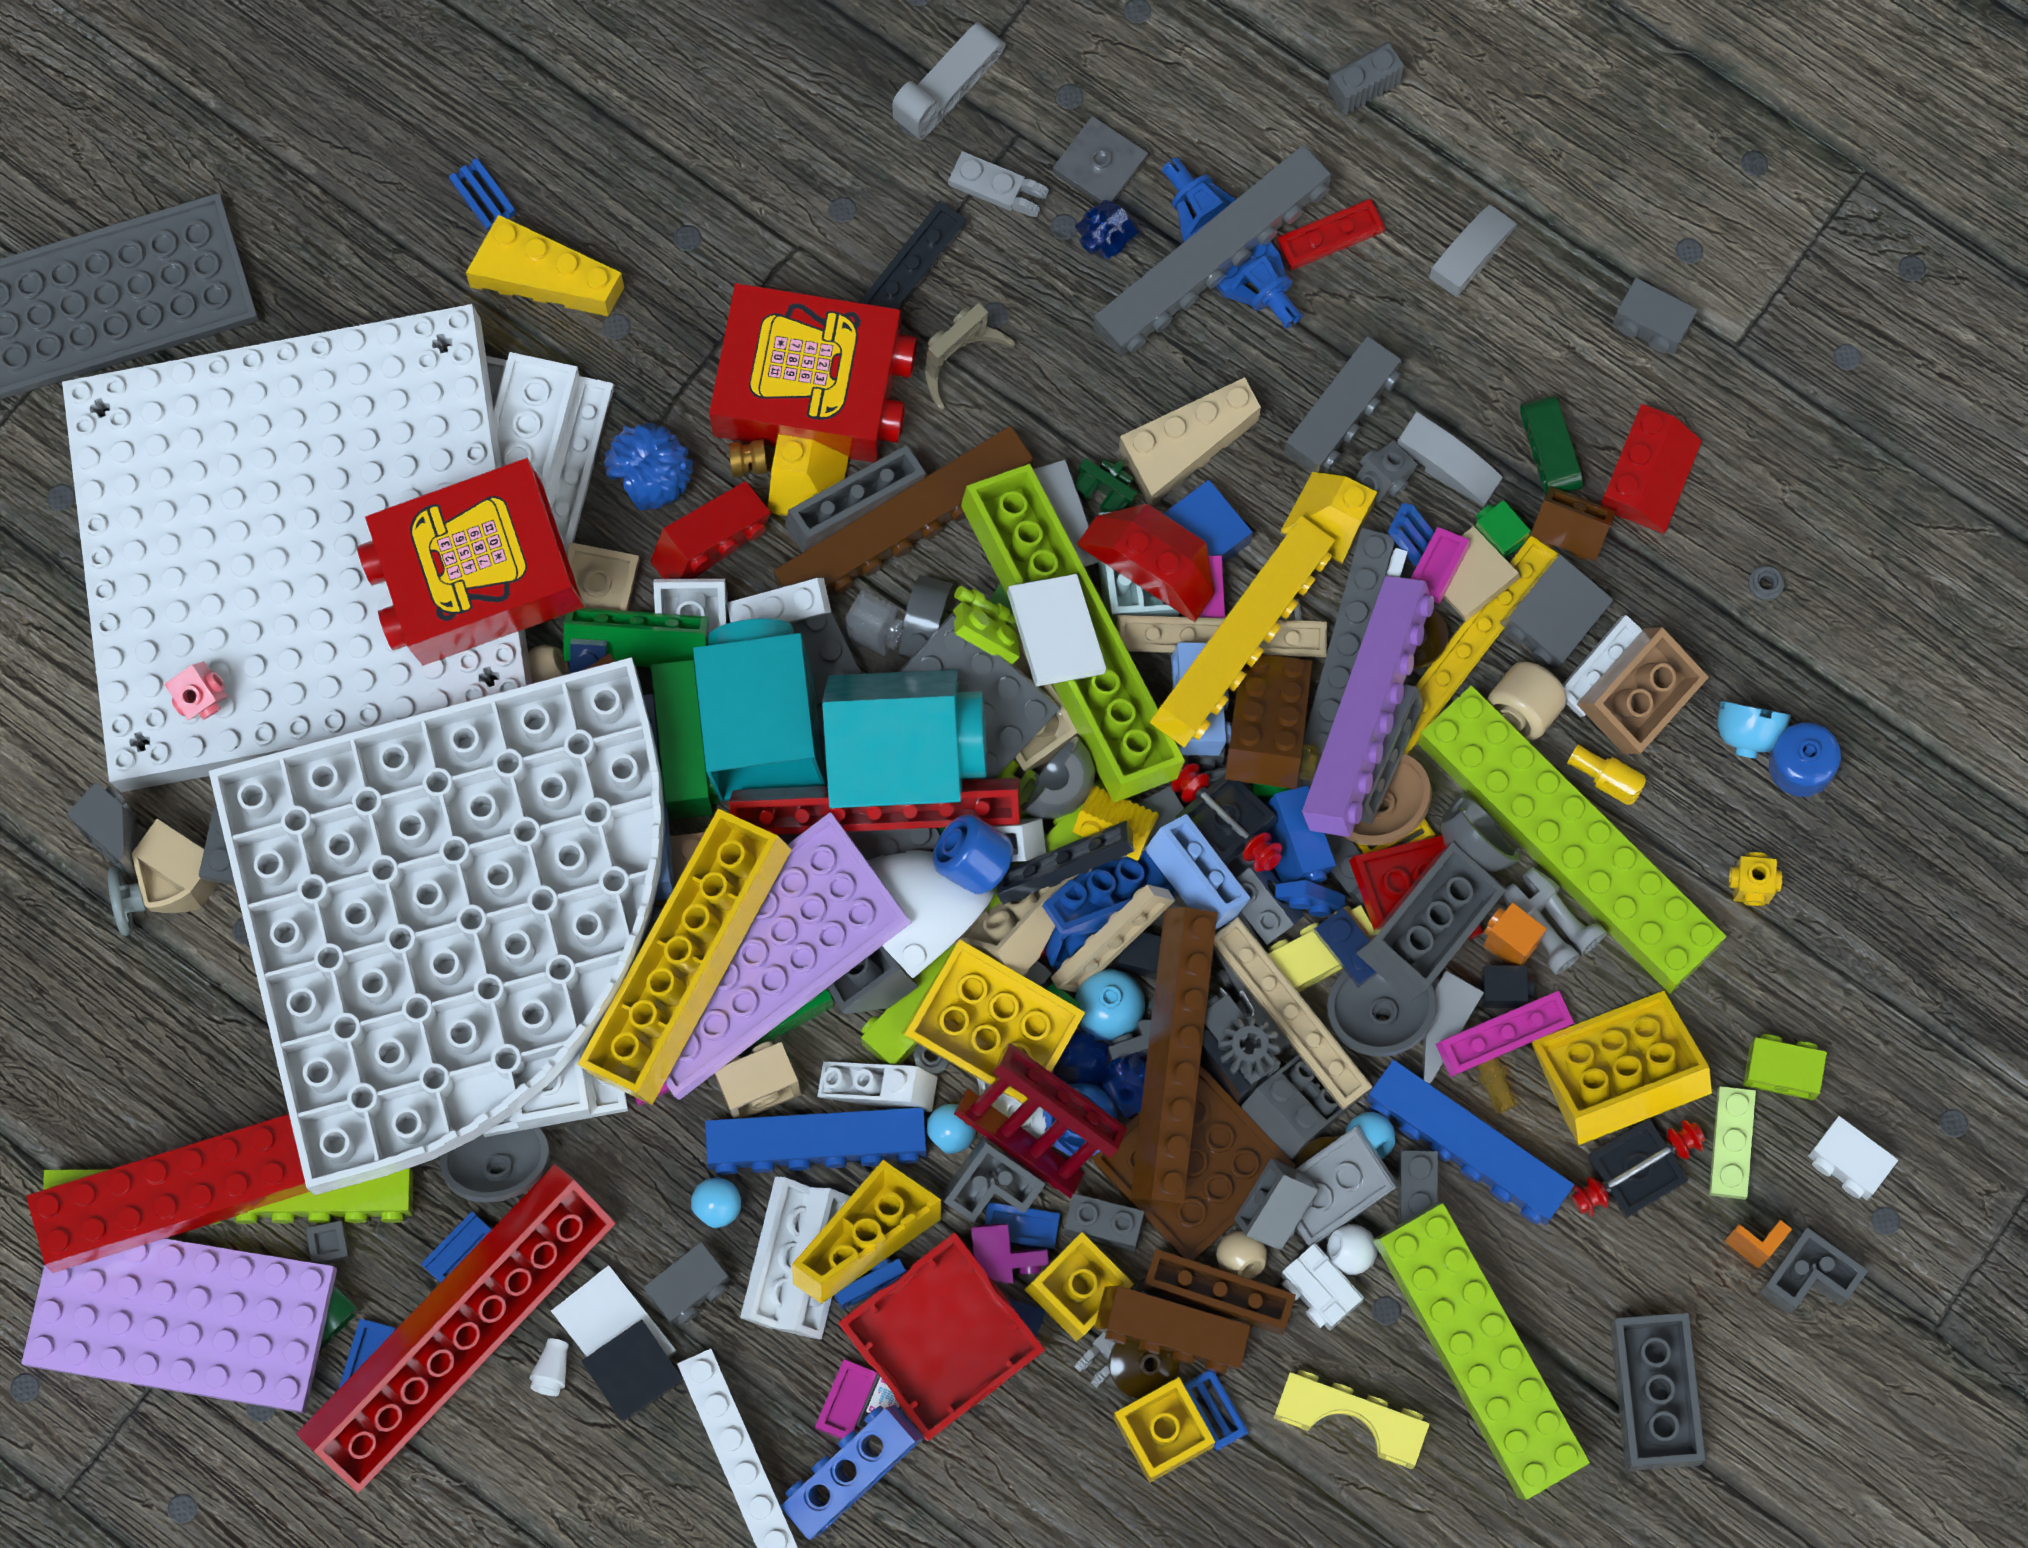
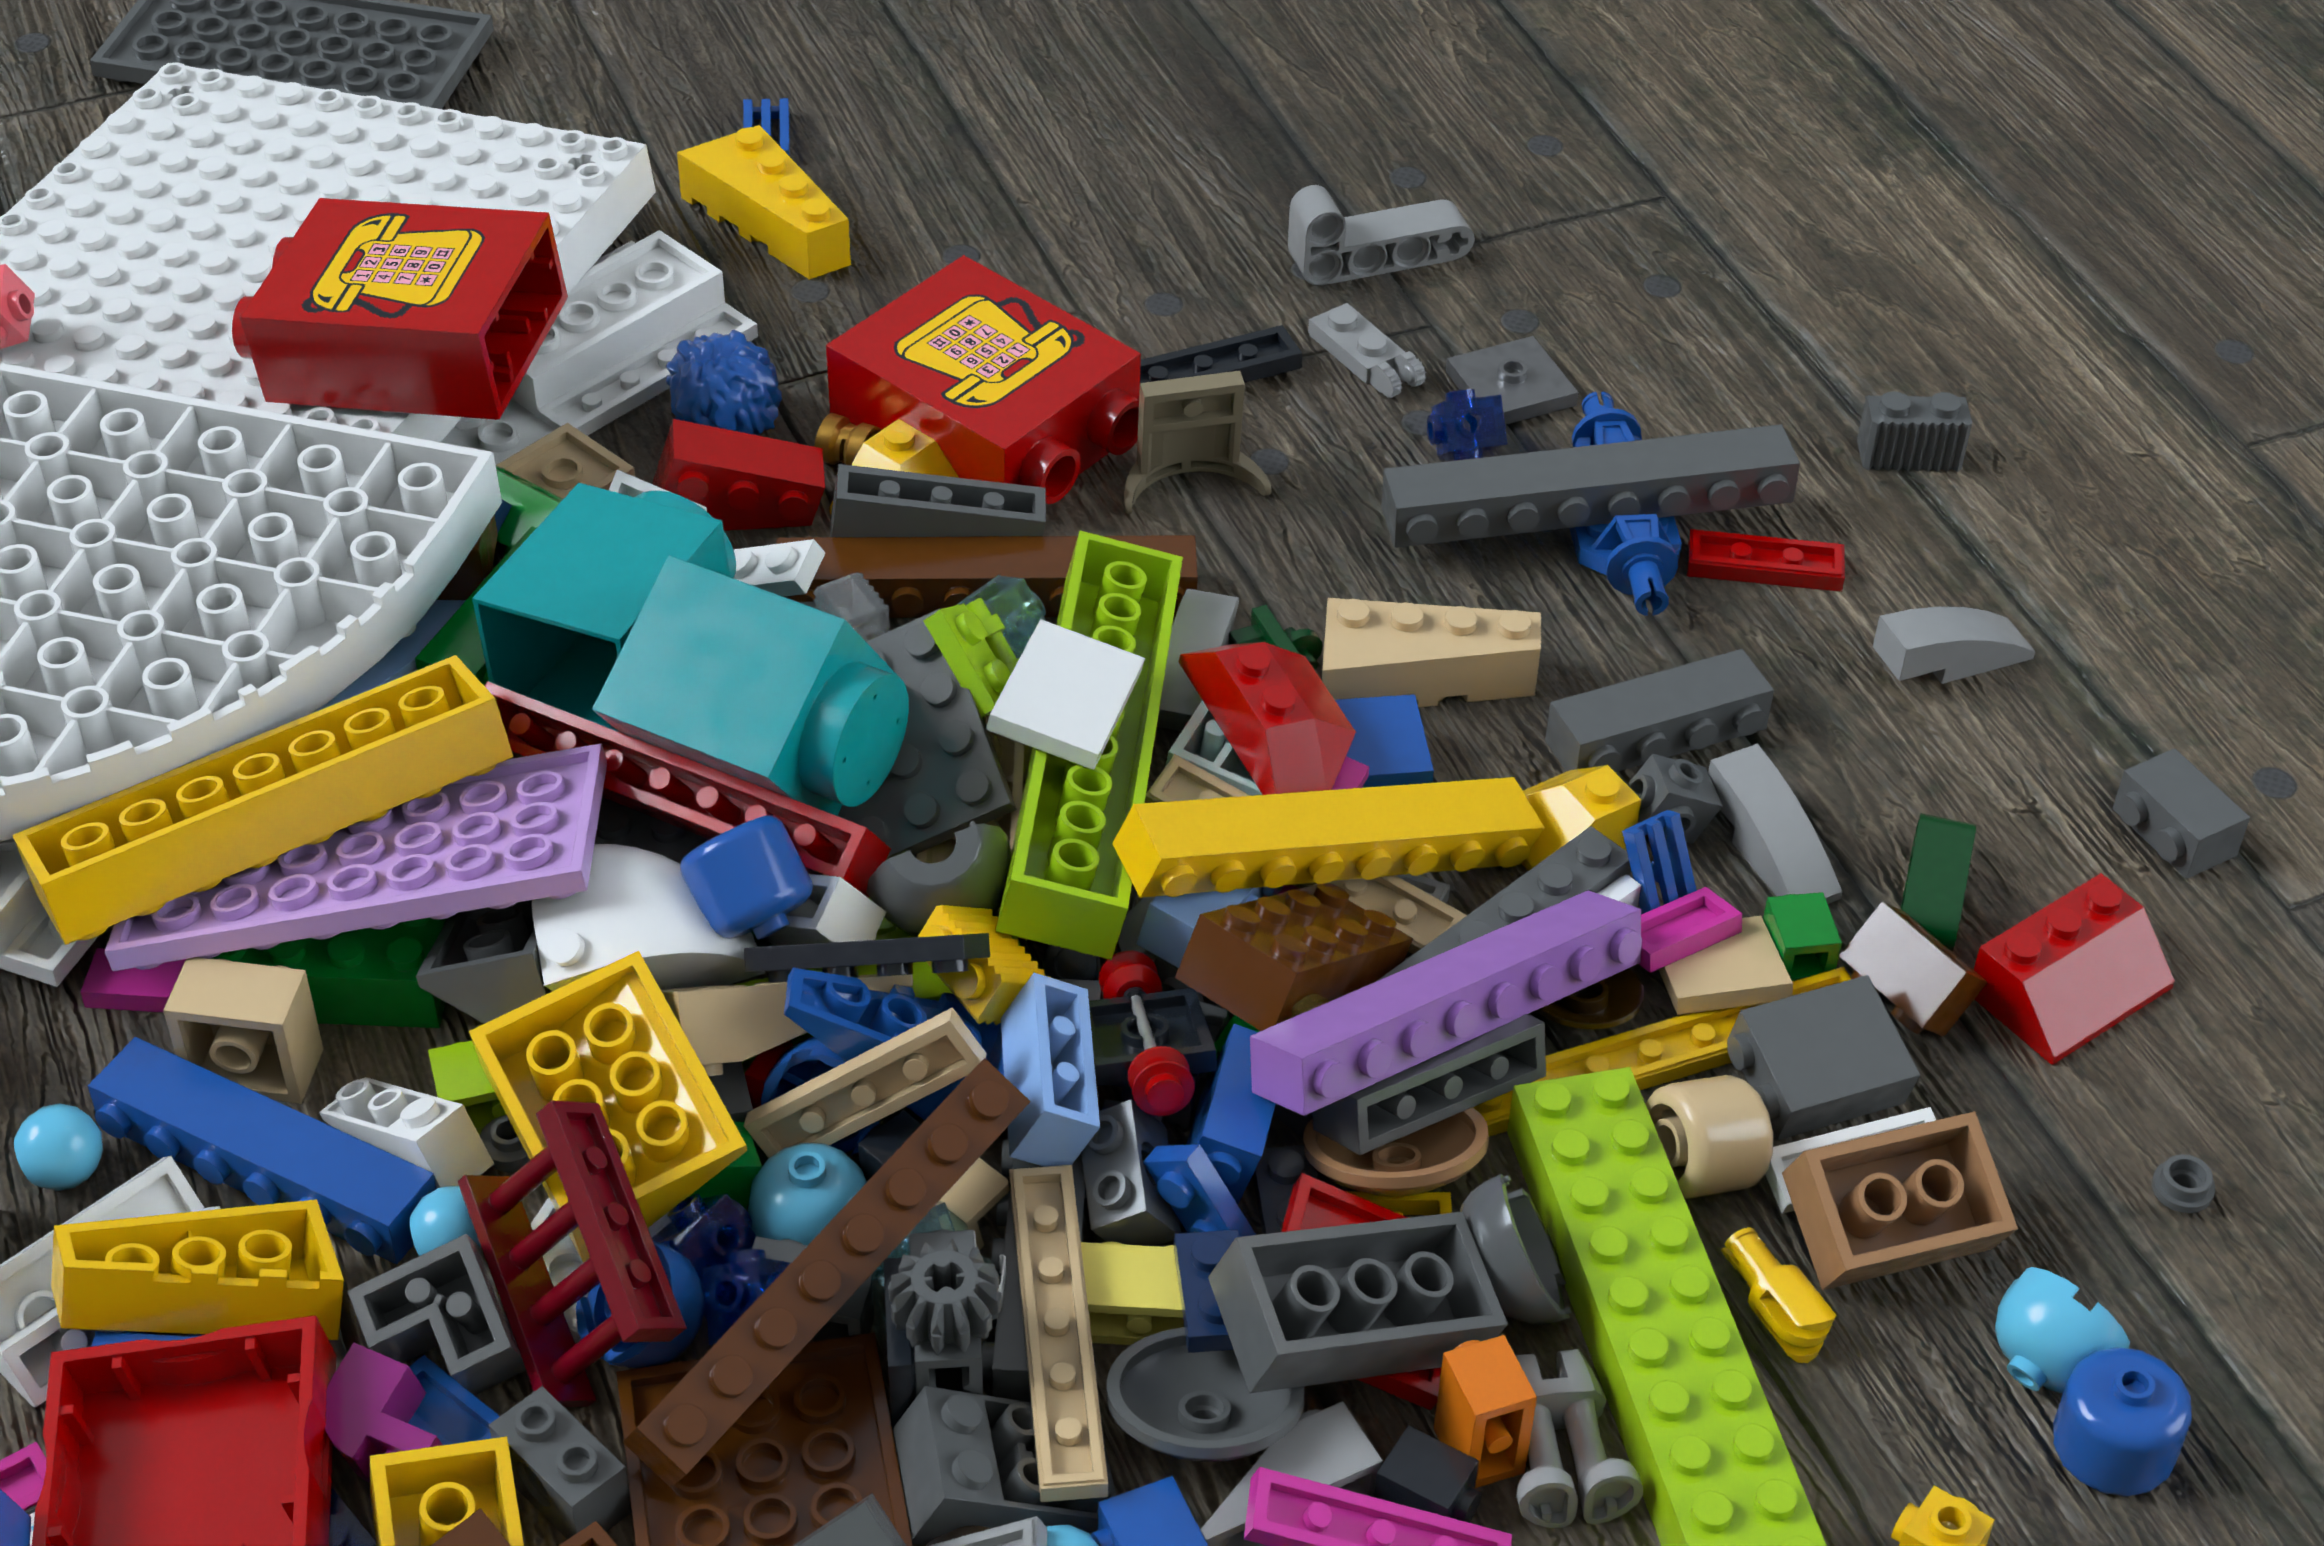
camera: 30 degrees right, 30 degrees down
(943, 553) = (1015, 605): none -> clear light blue brick

